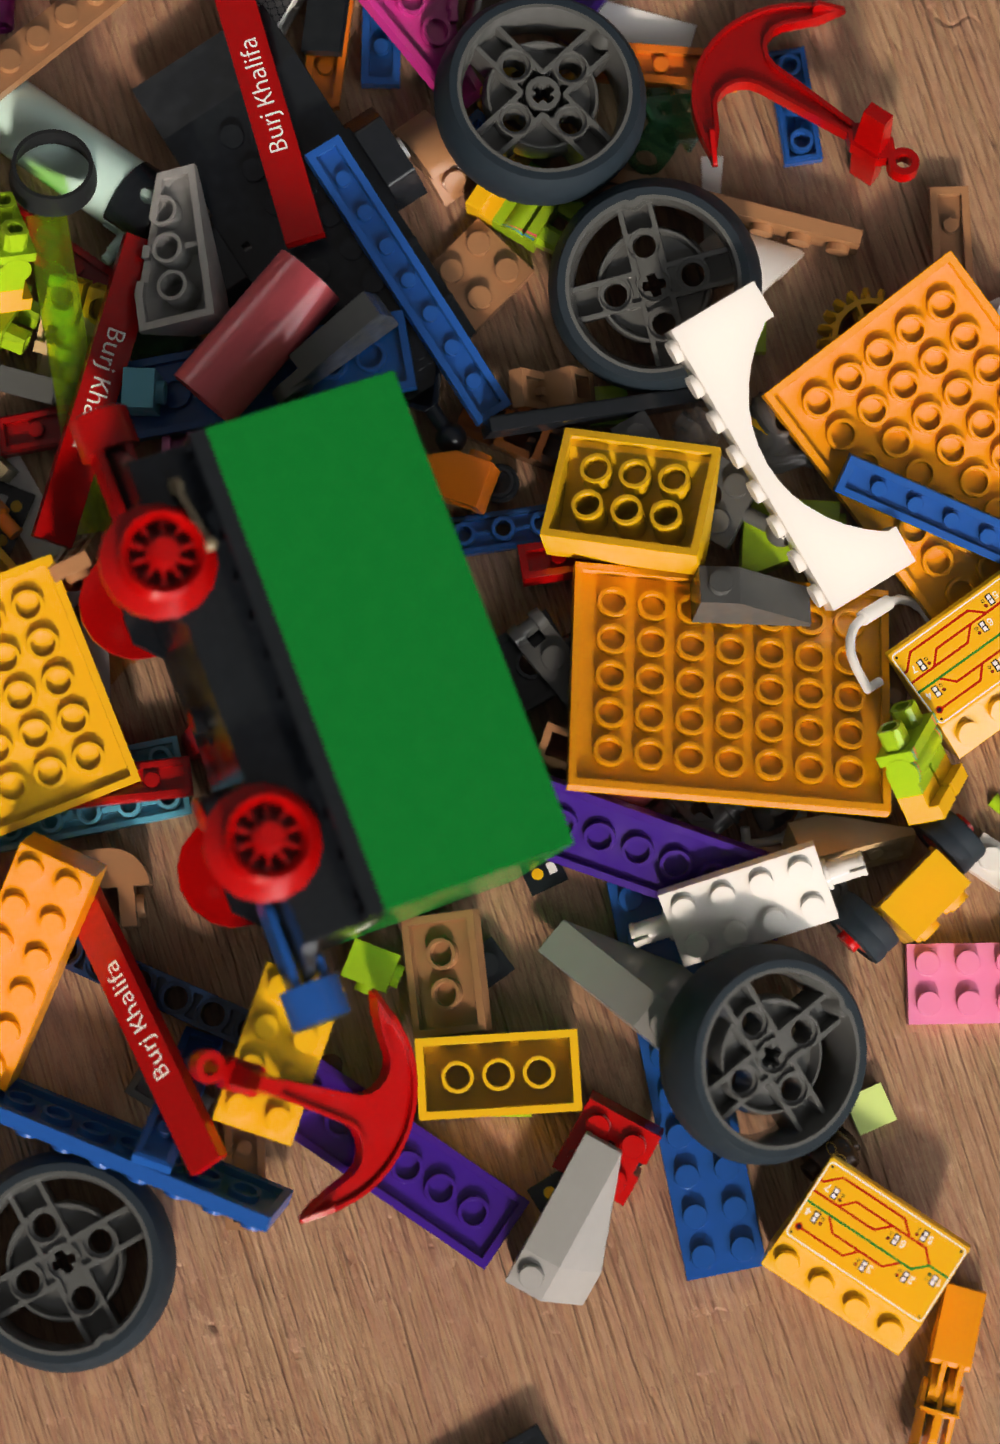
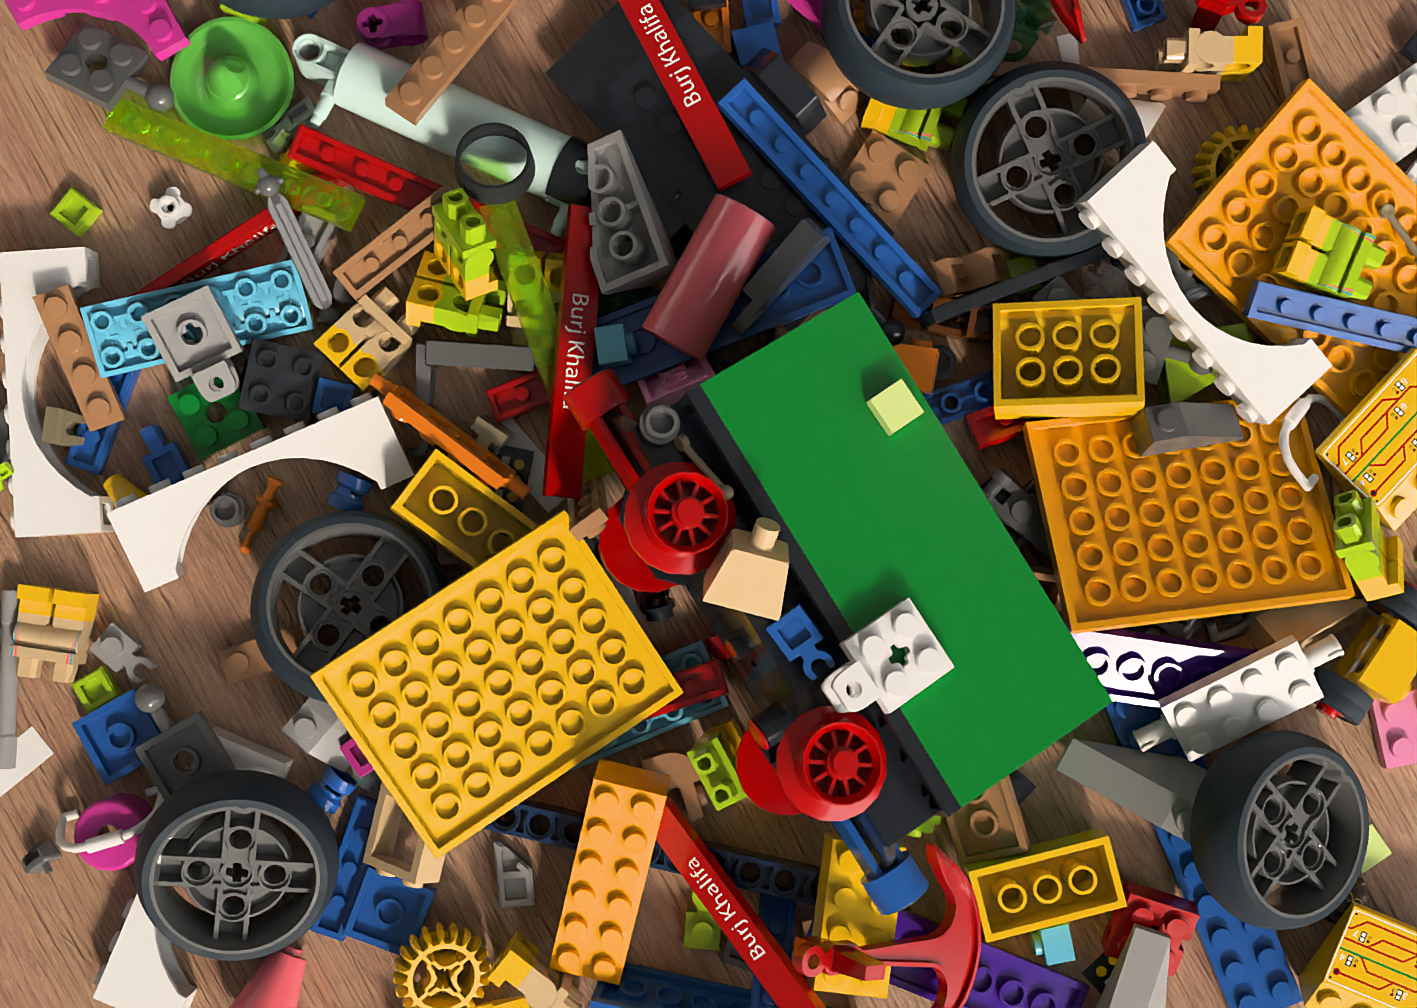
camera: 10 degrees left, 5 degrees up
(112, 1053) = (701, 928): none -> lime plate
(136, 689) = (658, 607): none -> black plate
(156, 462) = (659, 424): none -> dark grey plate
(157, 868) = (715, 763): none -> lime hips
(216, 625) = (750, 571): none -> tan torso
(253, 704) = (797, 636): none -> blue plate
(319, 753) = (870, 671): none -> white plate
(363, 95) = (750, 40): none -> blue panel
(404, 493) = (894, 407): none -> yellowish green tile
(497, 1142) = (1053, 944): none -> medium azure plate
(855, 206) = (1212, 53): none -> tan hips
(935, 444) = (1327, 255): none -> hips

